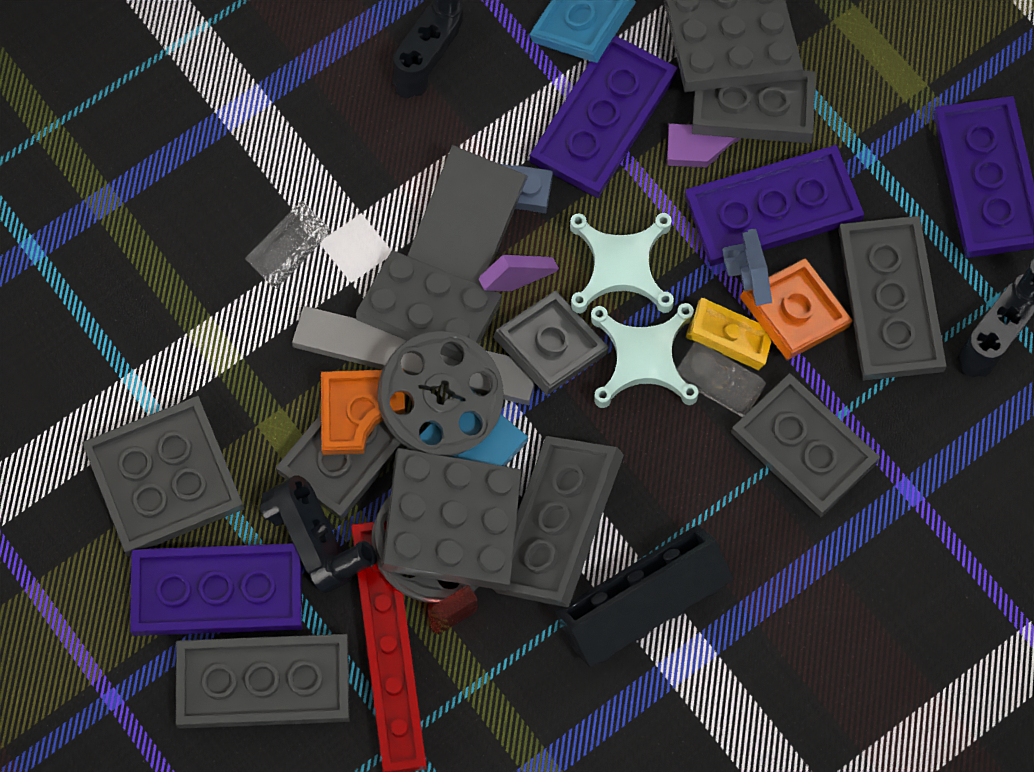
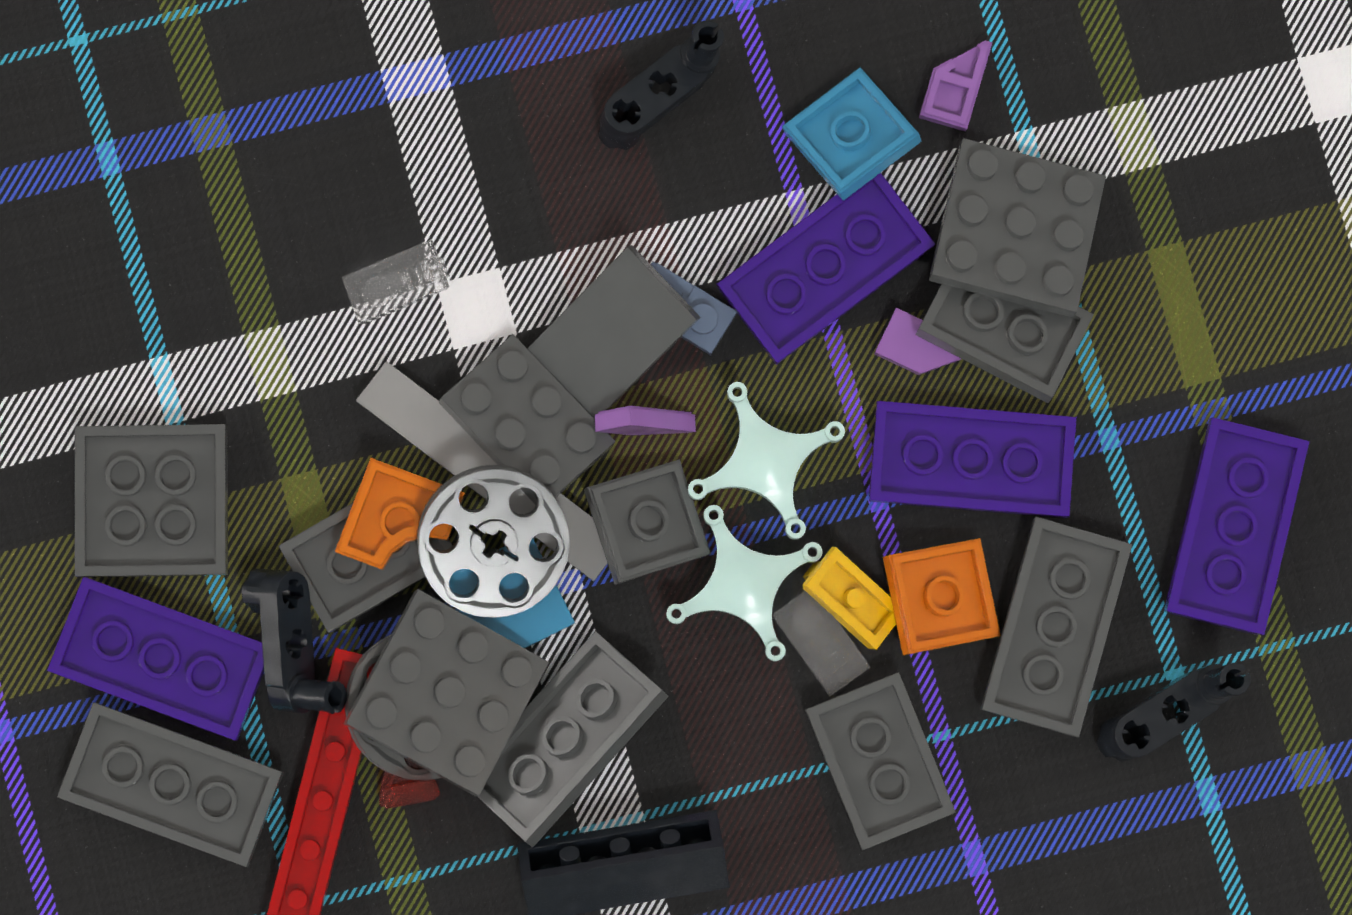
camera: 15 degrees right, 15 degrees up
(750, 263) = (905, 523): sand blue plate -> none

